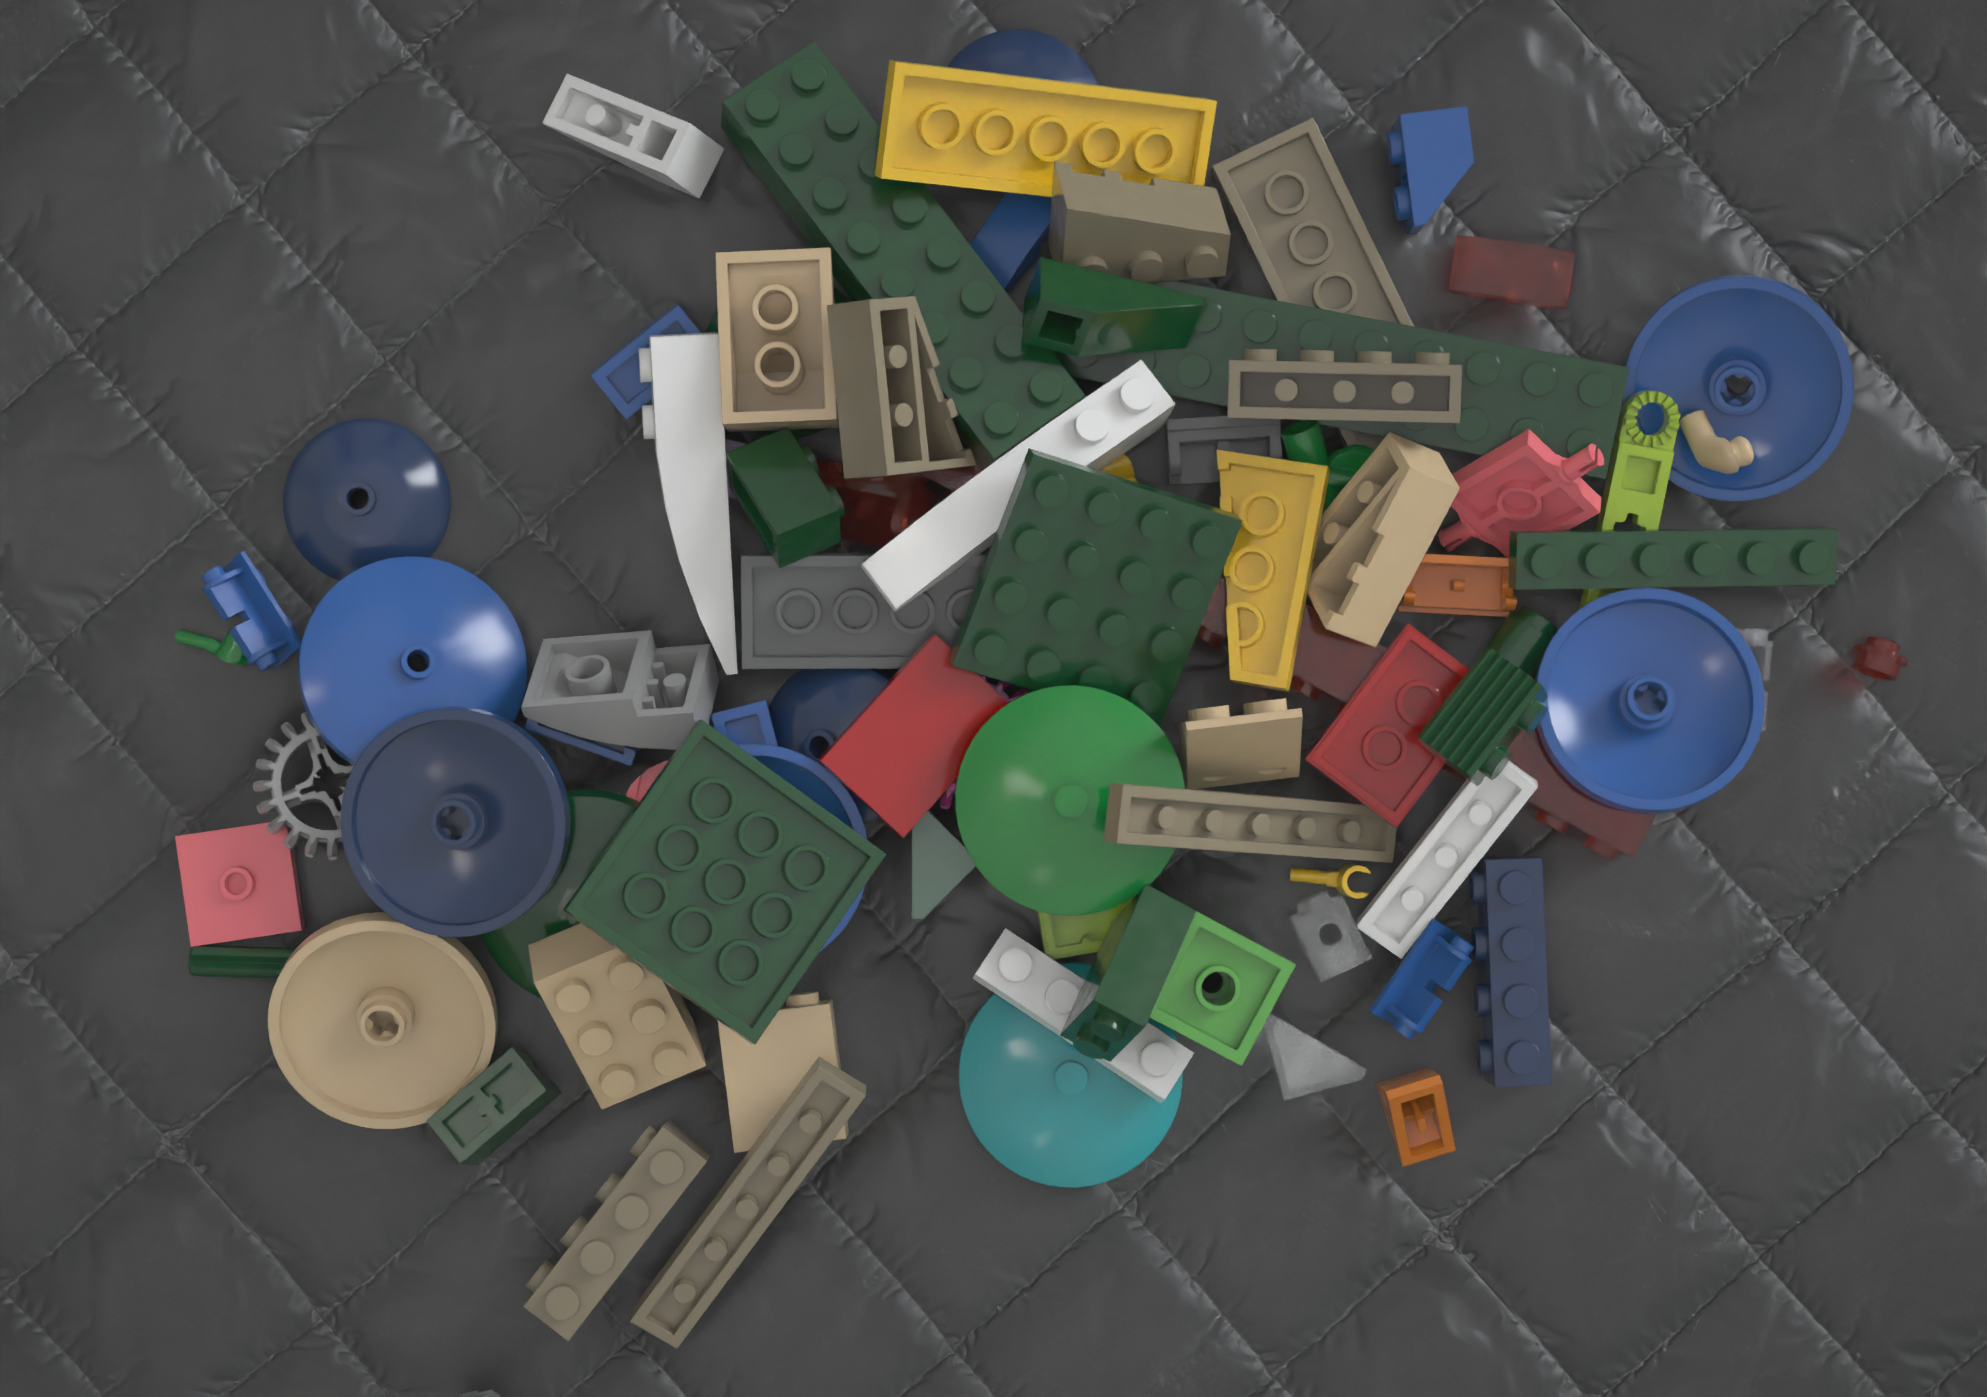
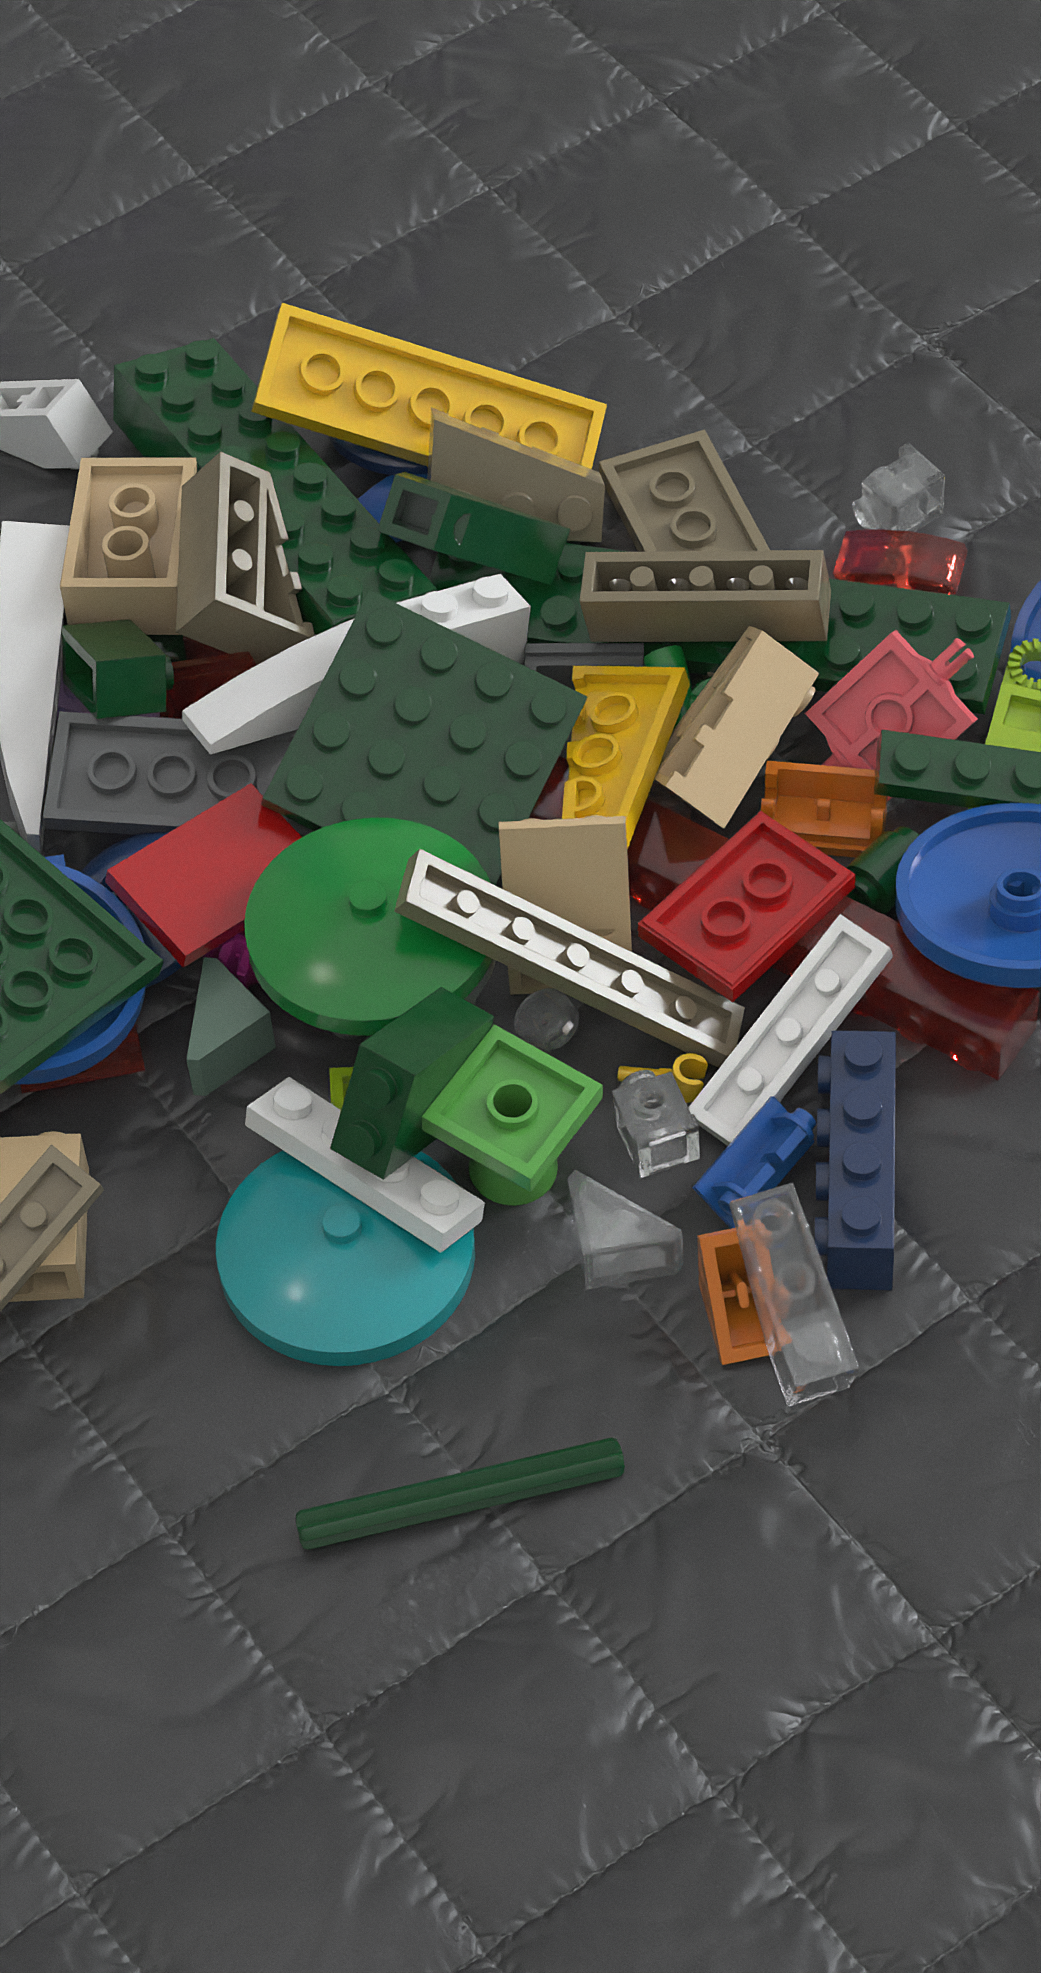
camera: 10 degrees right, 35 degrees down
(1195, 1310) = (459, 1493): none -> dark green axle
(1431, 157) = (824, 469): blue slope -> none
(1470, 1141) = (793, 1296): none -> clear slope
(1485, 717) = (830, 868): dark green brick -> none
(1507, 192) = (901, 494): none -> clear brick

